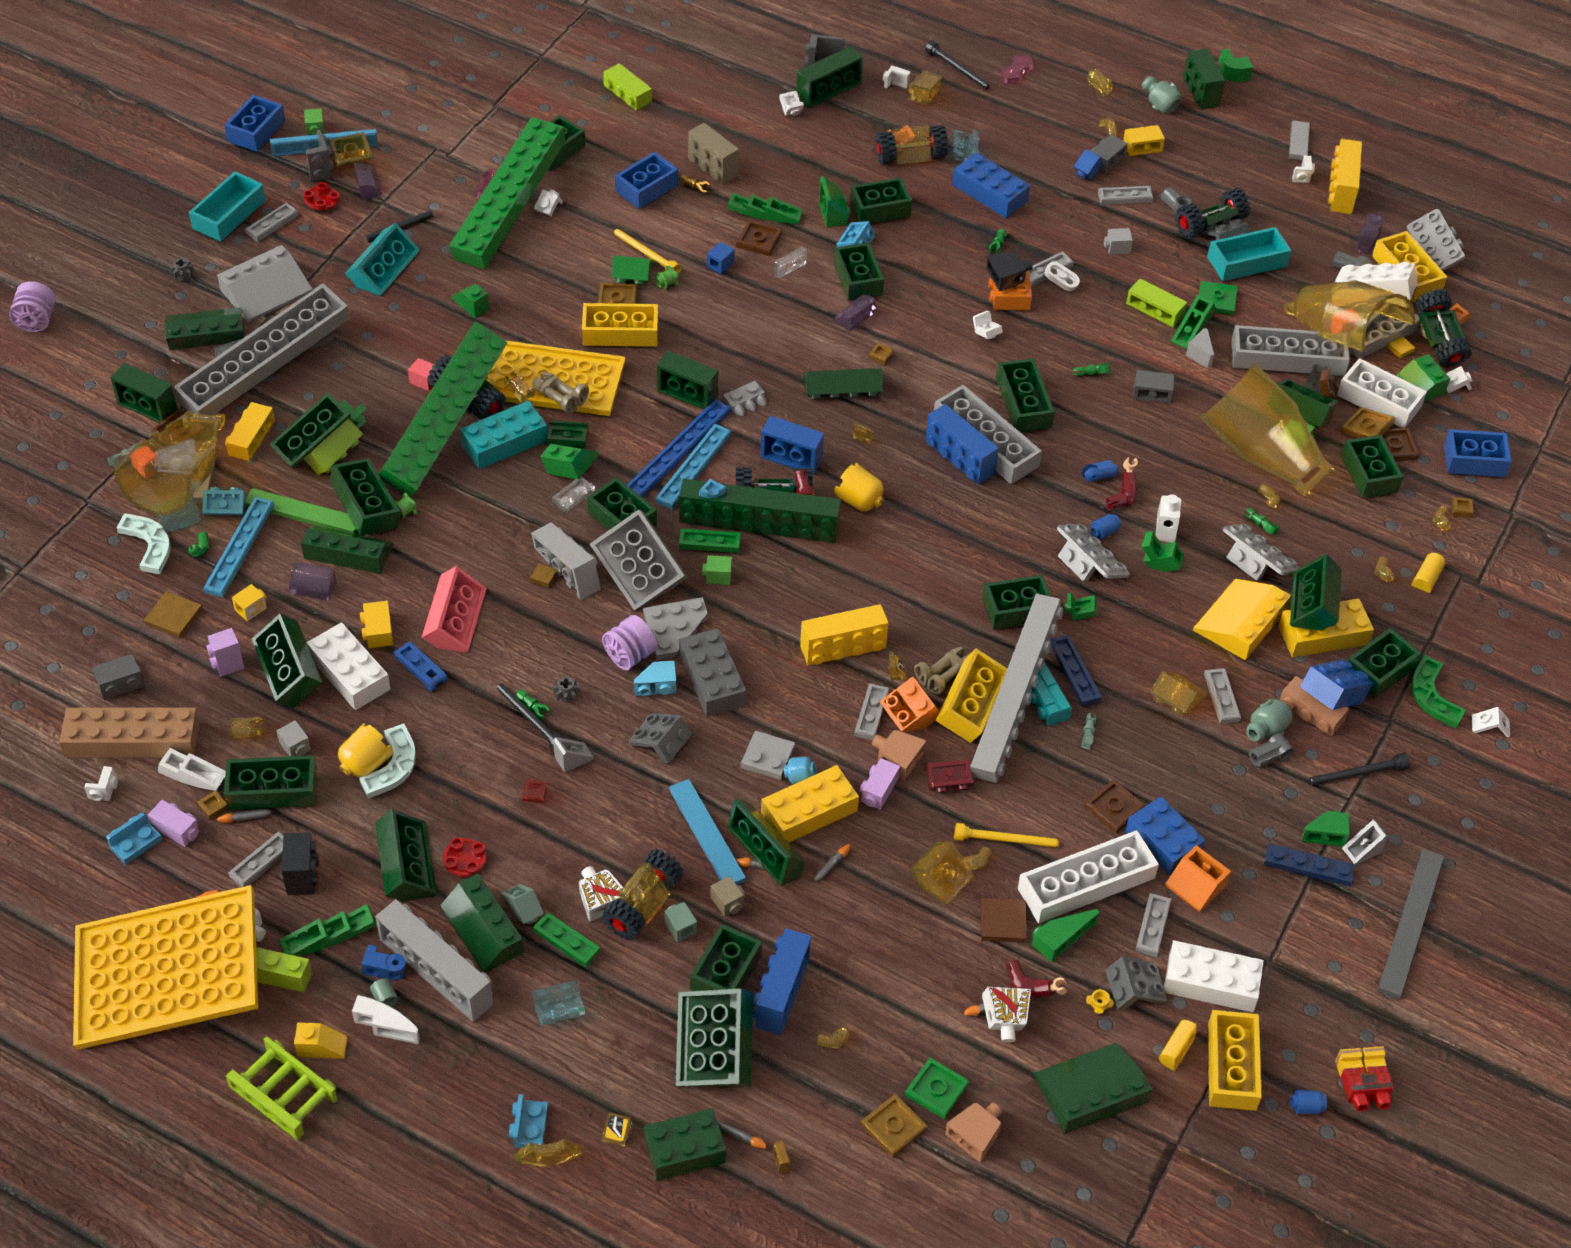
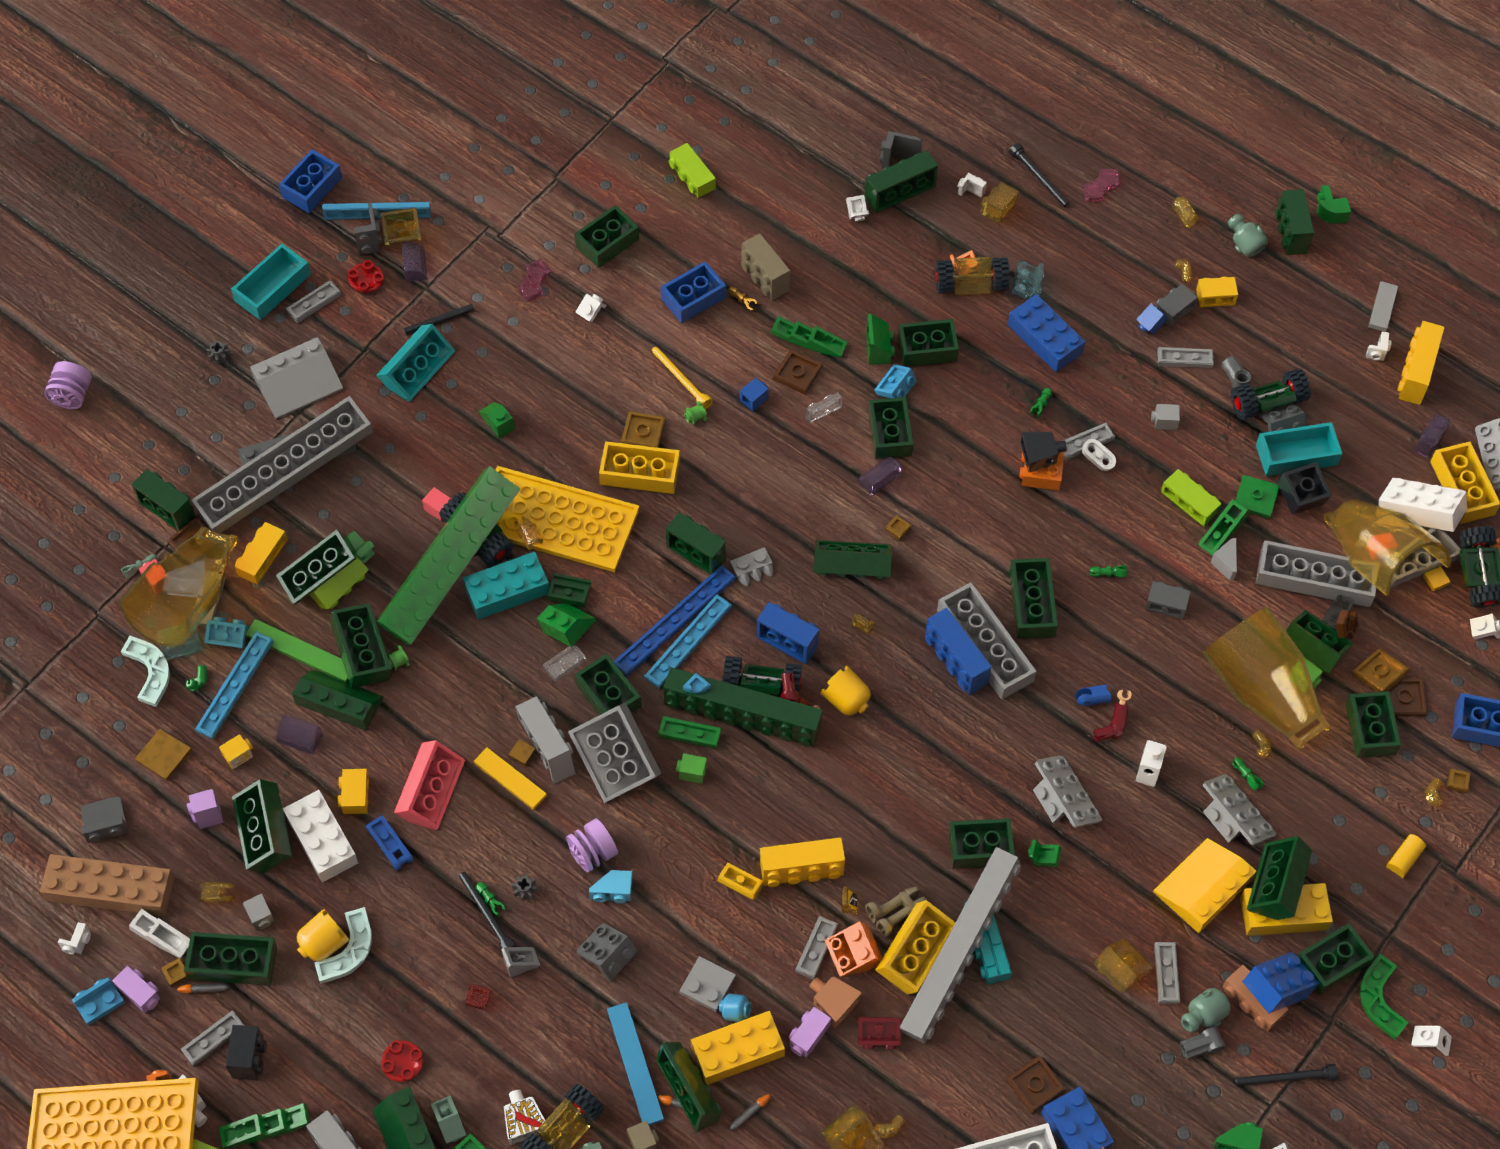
camera: 10 degrees right, 10 degrees up
(204, 328) = (231, 424): dark green slope -> none
(314, 121) = (370, 184): bright green brick -> none
(405, 857) = (346, 1054): dark green slope -> none
(507, 193) = (549, 297): green brick -> none
(535, 599) = (510, 778): none -> yellow tile
(549, 384) = (573, 559): dark tan piece -> none
(631, 268) = (662, 398): green slope -> none
(672, 622) = (640, 825): light grey plate -> none
(712, 672) = (667, 886): dark grey piece -> none
(784, 661) = (740, 881): none -> yellow brick
(963, 832) = (881, 1096): yellow piece -> none
(985, 327) = (1009, 507): white bracket -> none
(1075, 670) = (1025, 927): dark blue plate -> none
(1089, 731) = (1025, 996): sand green piece -> none
(1105, 526) = (1086, 762): blue brick -> none
(1161, 556) = (1135, 804): green brick -> none
(1261, 283) = (1304, 488): none -> black brick
(1342, 259) = (1405, 470): dark grey piece -> none
(1381, 392) = (1402, 636): white brick -> none
(1382, 570) = (1358, 846): clear yellow arm -> none
(1426, 375) = (1448, 623): green slope -> none

